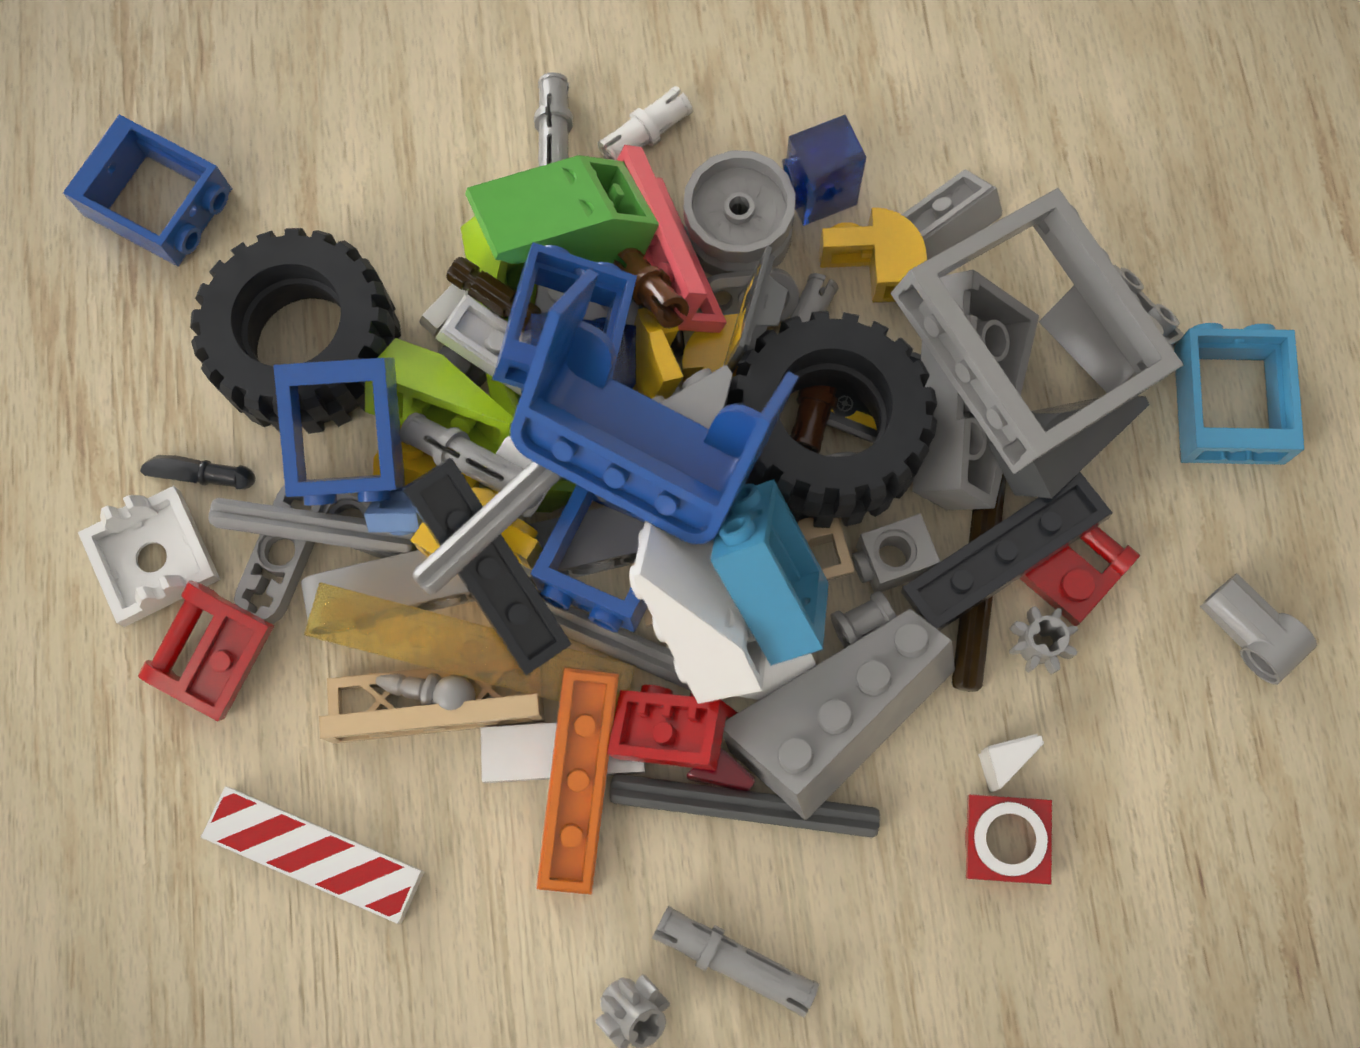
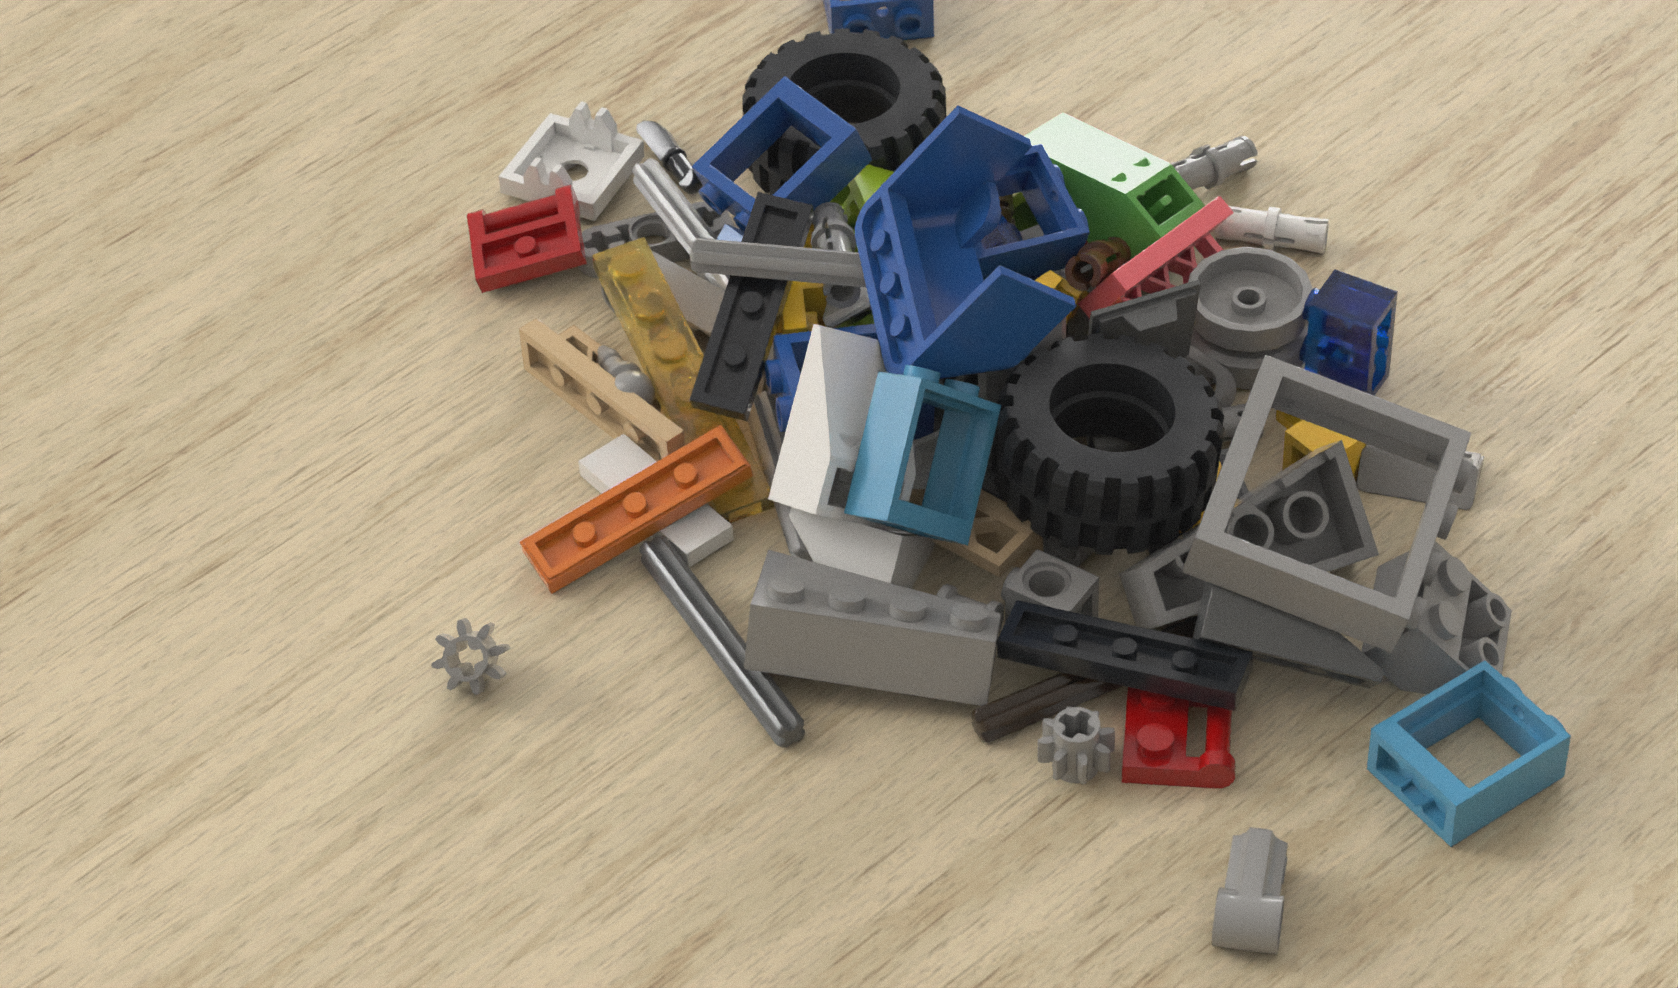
camera: 50 degrees right, 30 degrees down
(313, 855) = (420, 405): tile -> none
(668, 728) = (737, 523): red bracket -> none
(728, 774) = (732, 590): dark red slope -> none
(742, 964) = (575, 688): light grey pin -> none
(980, 861) = (866, 863): piece -> none
(1004, 759) = (937, 782): white slope -> none

